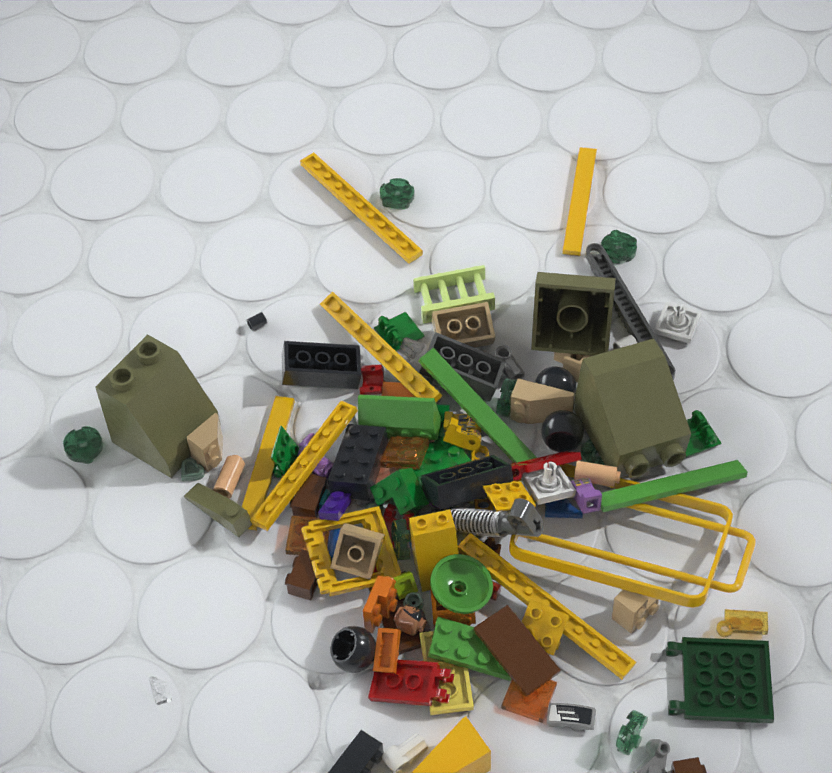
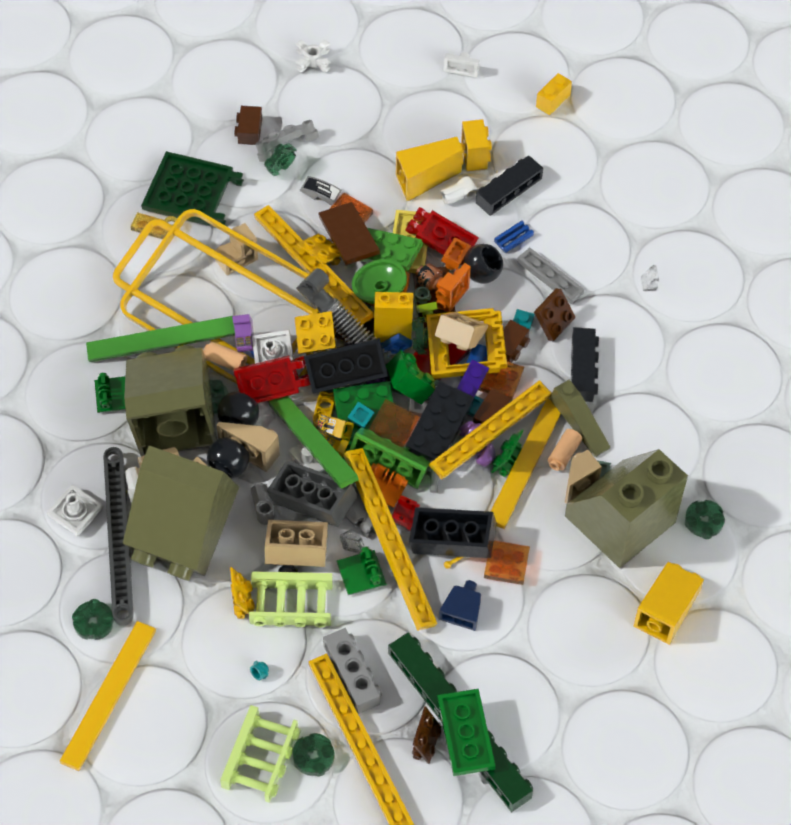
camera: 170 degrees left, 5 degrees up
(112, 343) = (668, 602): none -> yellow slope
(223, 569) = (583, 362): none -> black brick
(256, 321) = (508, 619): black hinge -> none
(263, 610) = (554, 314): none -> reddish brown plate
(265, 365) = (507, 563): none -> clear orange plate
(274, 215) = (466, 732): none -> green plate
(276, 668) = (550, 274): none -> light grey plate
(285, 238) = (431, 682): none -> dark green brick
(297, 610) = (524, 318): none -> teal plate
(300, 319) = (462, 606): none -> dark blue torso
(308, 216) = (426, 736): none -> reddish brown hinge
(315, 714) = (511, 234): none -> blue tile
(384, 253) = (361, 698): none -> light grey brick
(438, 445) = (360, 415): none -> teal plate
(454, 190) = (246, 738): none -> yellowish green fence
(461, 239) = (259, 670): none -> teal plate
(498, 281) = (241, 593): none -> yellow hinge
(503, 404) = (278, 456): clear green plate -> none

